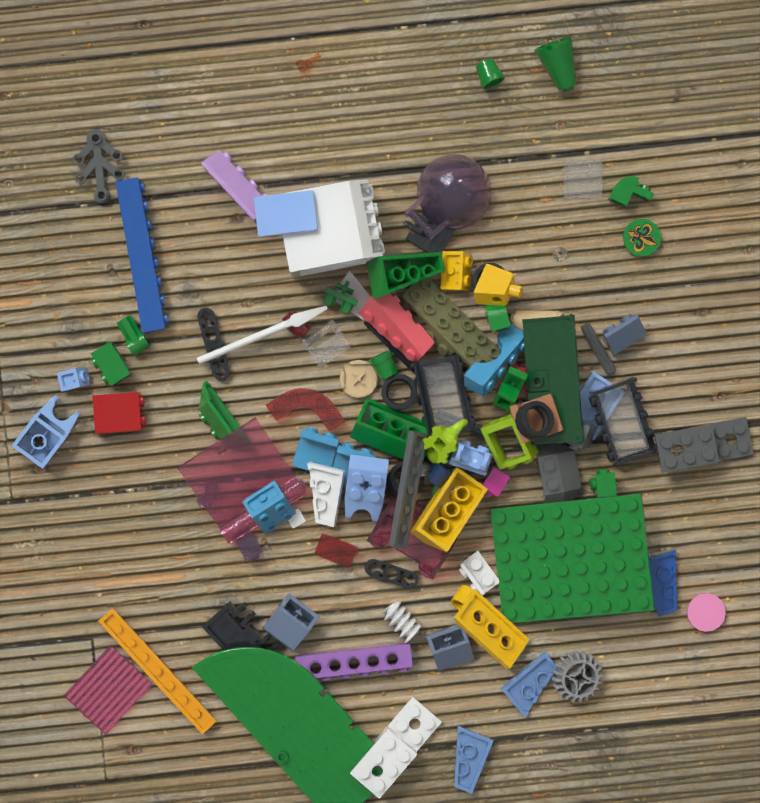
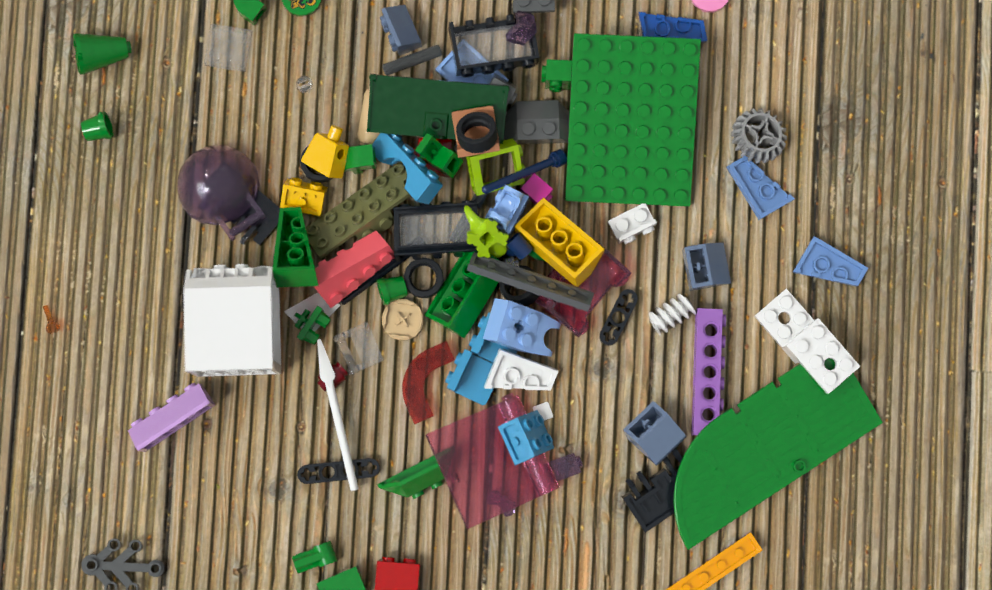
camera: 80 degrees left, 5 degrees down
(141, 256) = (228, 534): blue brick -> none
(285, 213) = (207, 362): light blue tile -> none
(335, 550) = (584, 373): clear red panel -> none
(471, 601) = (661, 235): yellow hinge -> none
(526, 495) = (555, 159): none -> dark blue piece
(639, 446) = (523, 29): none -> clear purple bracket

